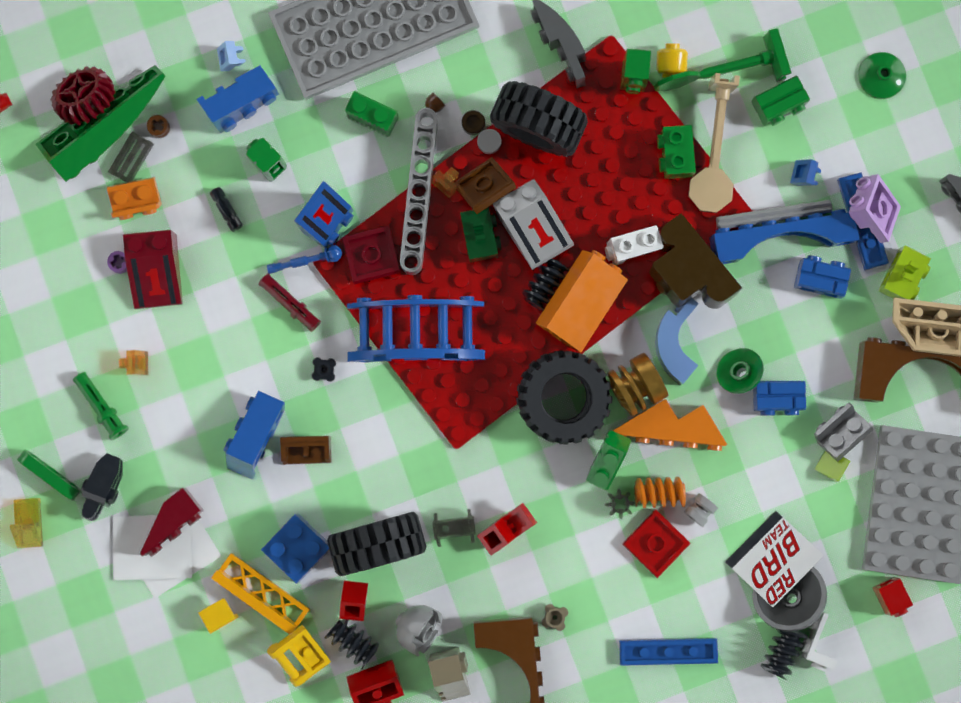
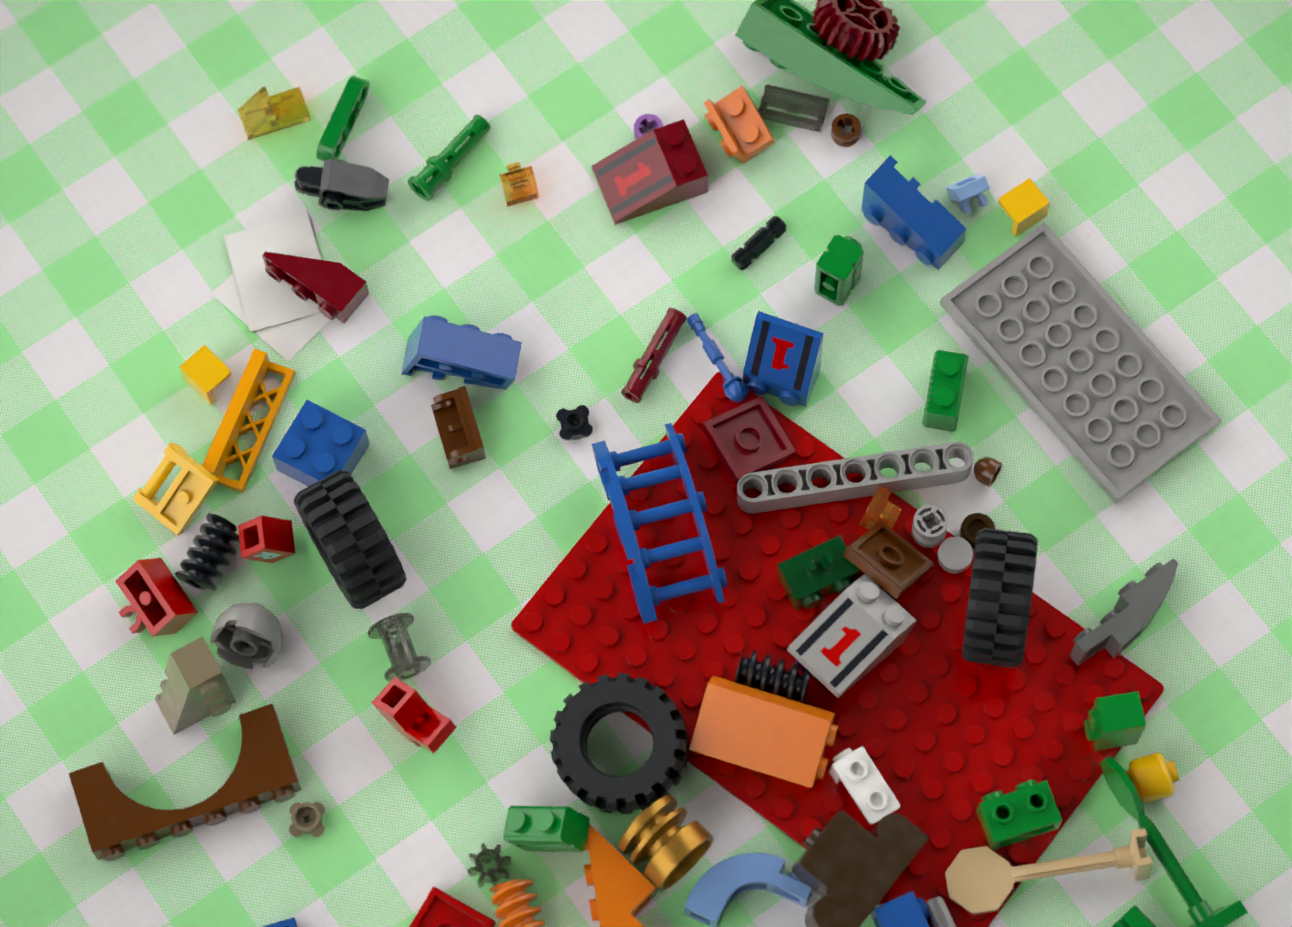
camera: 75 degrees right, 15 degrees down
(251, 21) = (1024, 206): none -> yellow panel
(469, 155) = (928, 533): none -> light grey wheel

